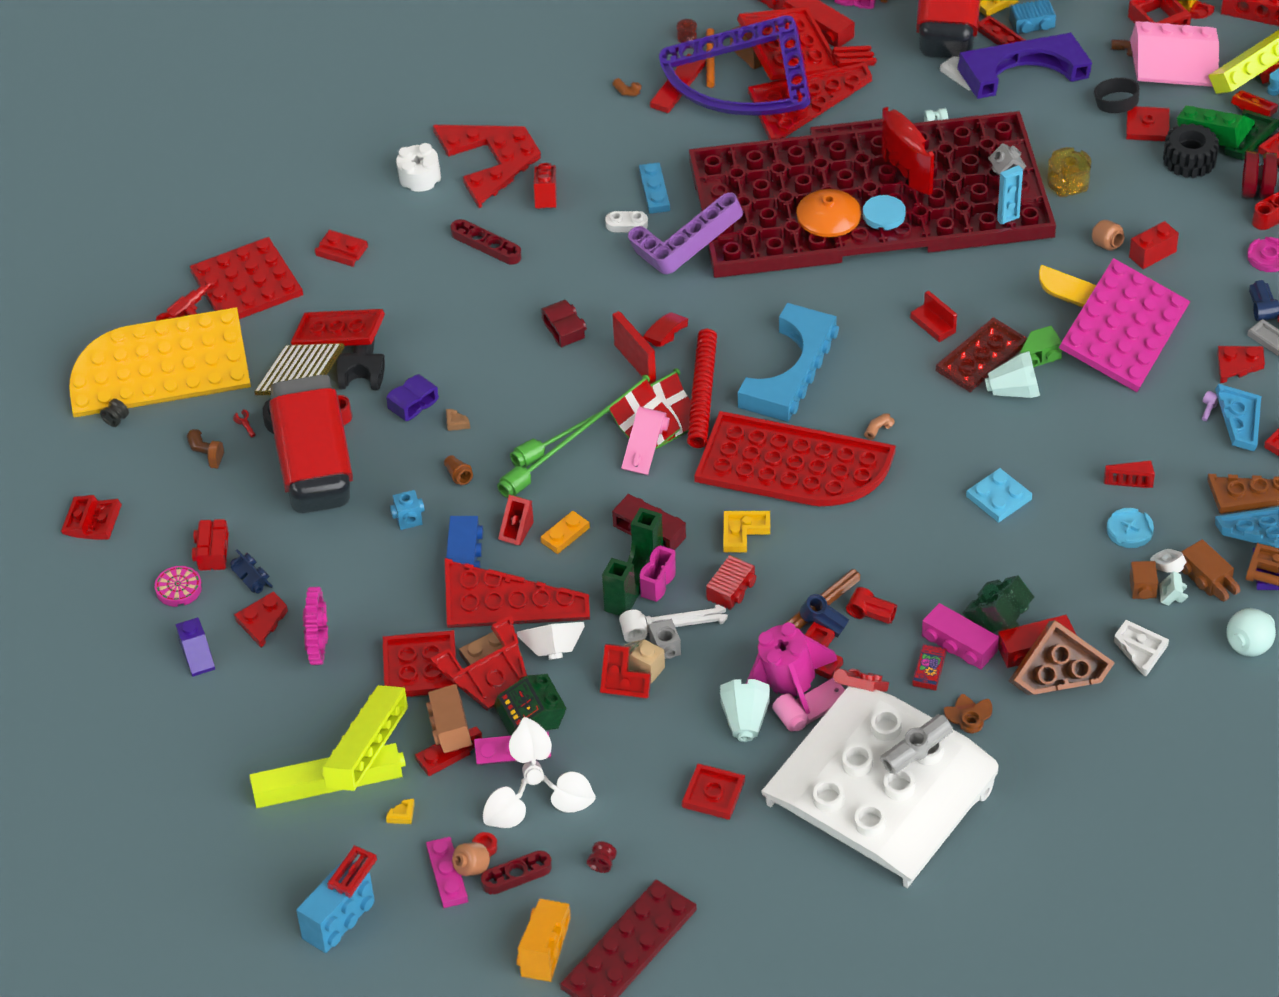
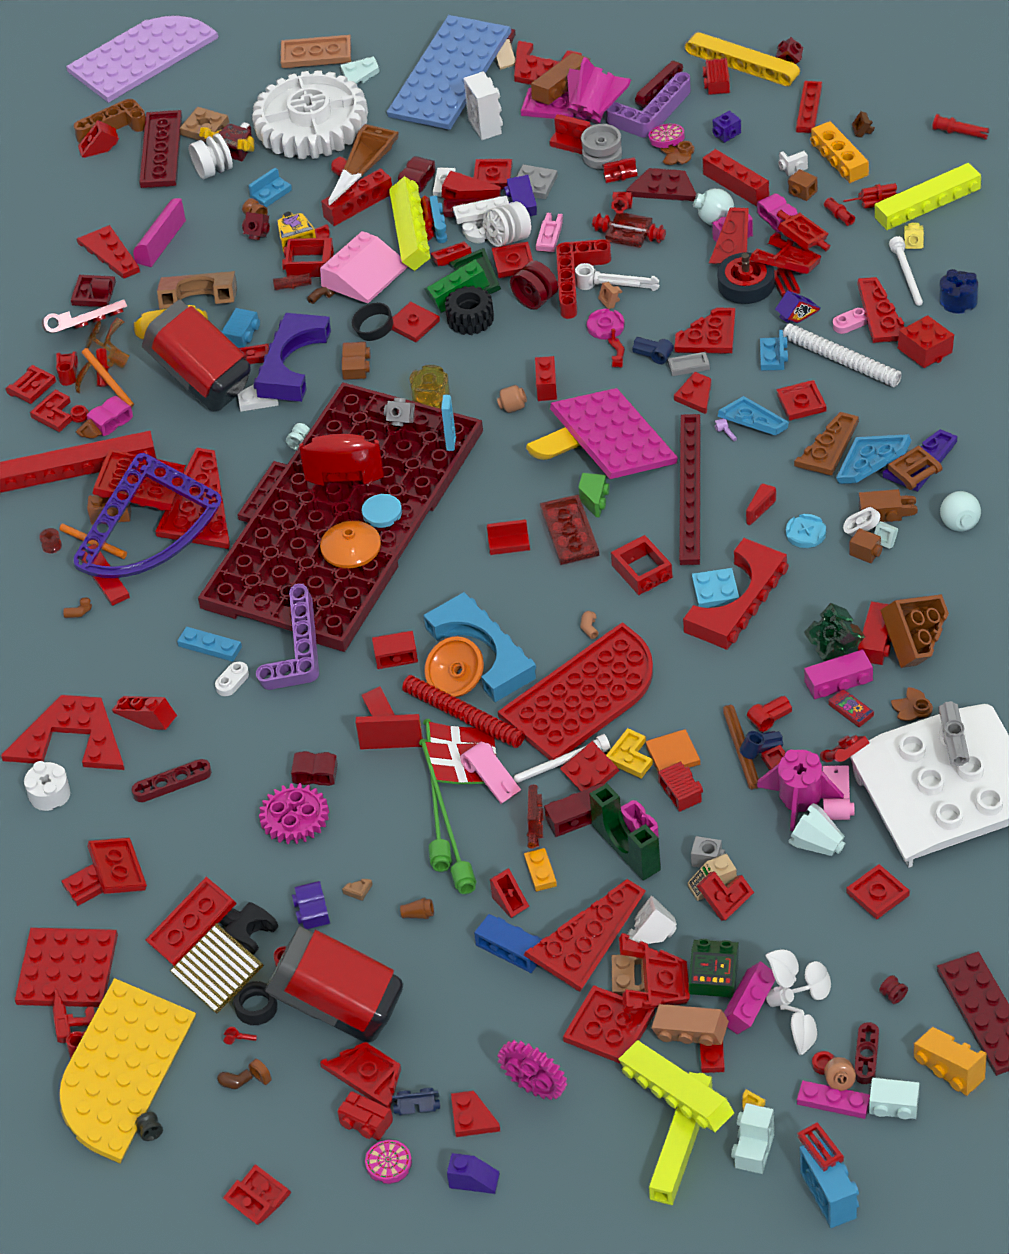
camera: 55 degrees left, 0 degrees up
(260, 524) = (367, 1072): none -> red wing
(355, 829) = (755, 1138): none -> light aqua brick
(367, 253) = (116, 865): none -> red tile
(407, 509) = (437, 961): dark azure brick -> none
(469, 915) = (894, 1098): none -> light aqua brick
(504, 335) = (294, 813): none -> dark pink gear
(609, 491) = (535, 817): none -> clear red plate
(636, 625) = (679, 863): white piece -> none
(703, 507) = (589, 767): none -> red plate
(738, 307) = (395, 650): none -> red brick
(738, 501) = (601, 741): none -> white piece
(744, 354) = (447, 659): none -> orange dish
(773, 559) = (673, 749): none -> orange tile
(848, 55) = (180, 442): red tile -> none
(957, 521) = (724, 623): none -> red arch
(984, 410) = (635, 550): none -> red window
(1014, 378) = (615, 518): light aqua cone -> none
(1060, 108) = (355, 360): none -> dark orange brick
(1106, 415) = (690, 489): none -> dark red plate
(1119, 19) = (292, 281): none -> clear red pin
(1140, 645) = (923, 578): white wing -> none
(1249, 275) = (617, 361): none -> red piece

